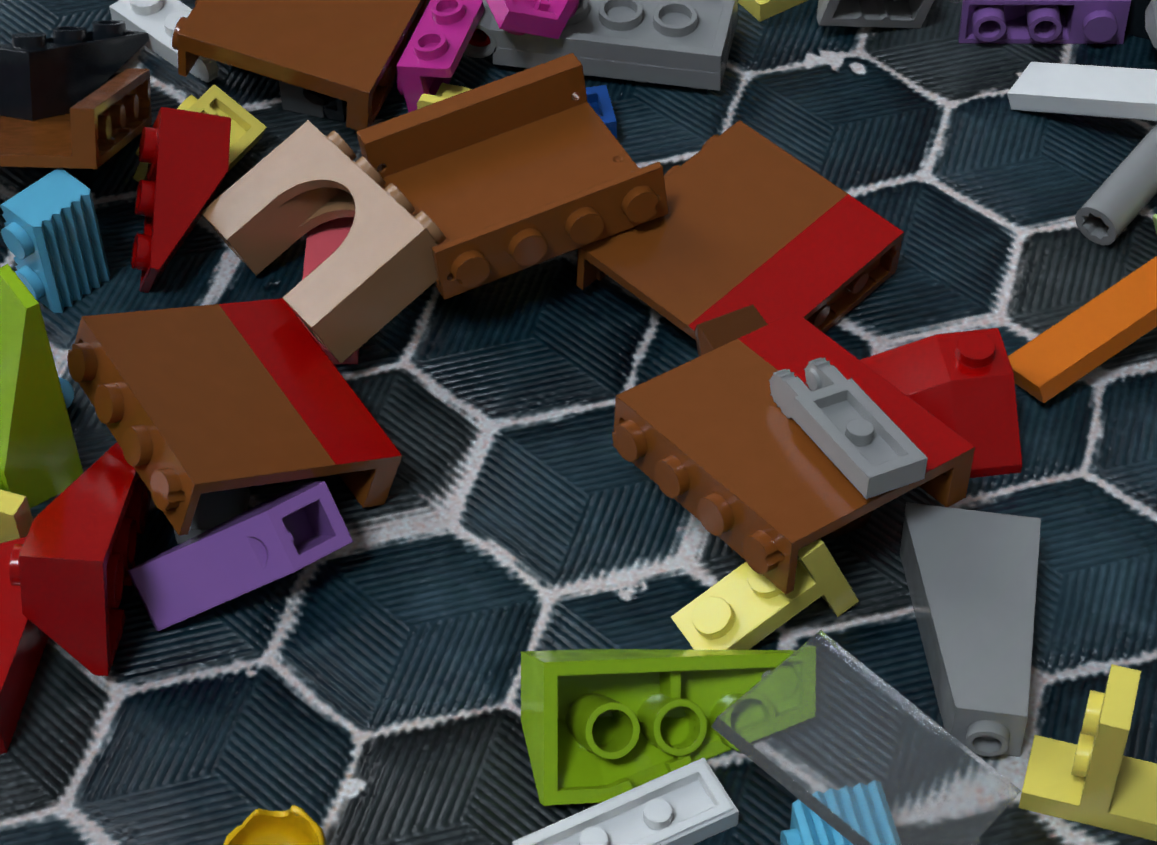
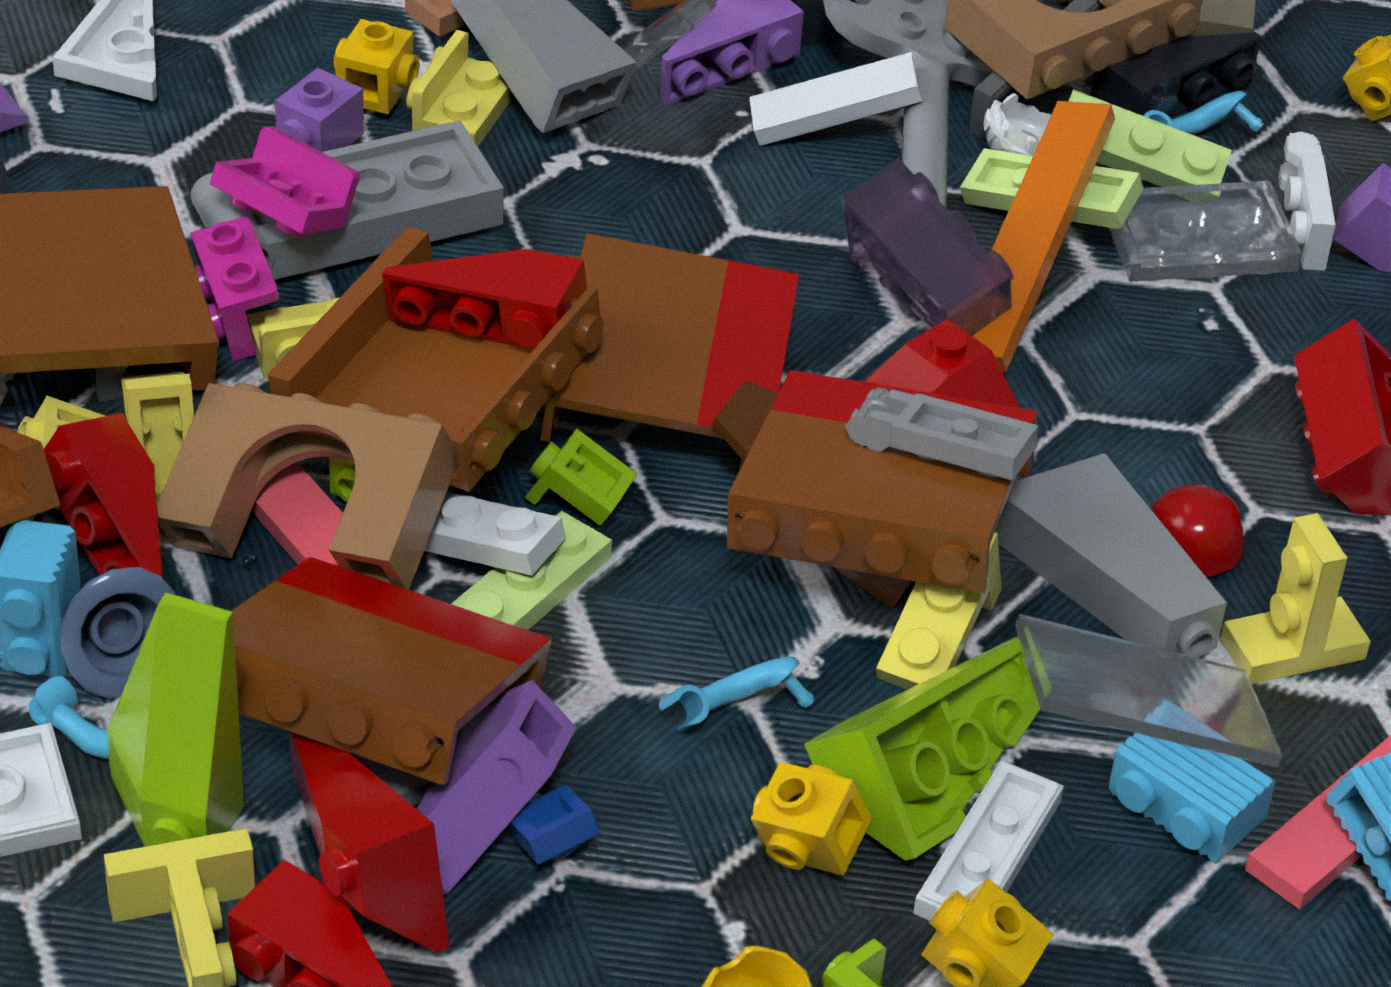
camera: 40 degrees left, 5 degrees down
(93, 280) = (108, 627): none -> sand blue hat
(264, 123) = (160, 415): none -> light yellow bracket
(273, 616) = (553, 825): none -> blue plate
(447, 342) = (494, 534): none -> white plate
(460, 401) = (527, 598): none -> yellowish green plate
(471, 721) = (810, 818): none -> yellow brick
(539, 574) = (737, 687): none -> medium azure piece
(574, 331) = (582, 476): none -> lime bracket
(586, 135) = (487, 296): none -> red slope
(1034, 259) = (925, 250): none -> clear purple wedge
(1088, 631) = (1204, 525): none -> red hair

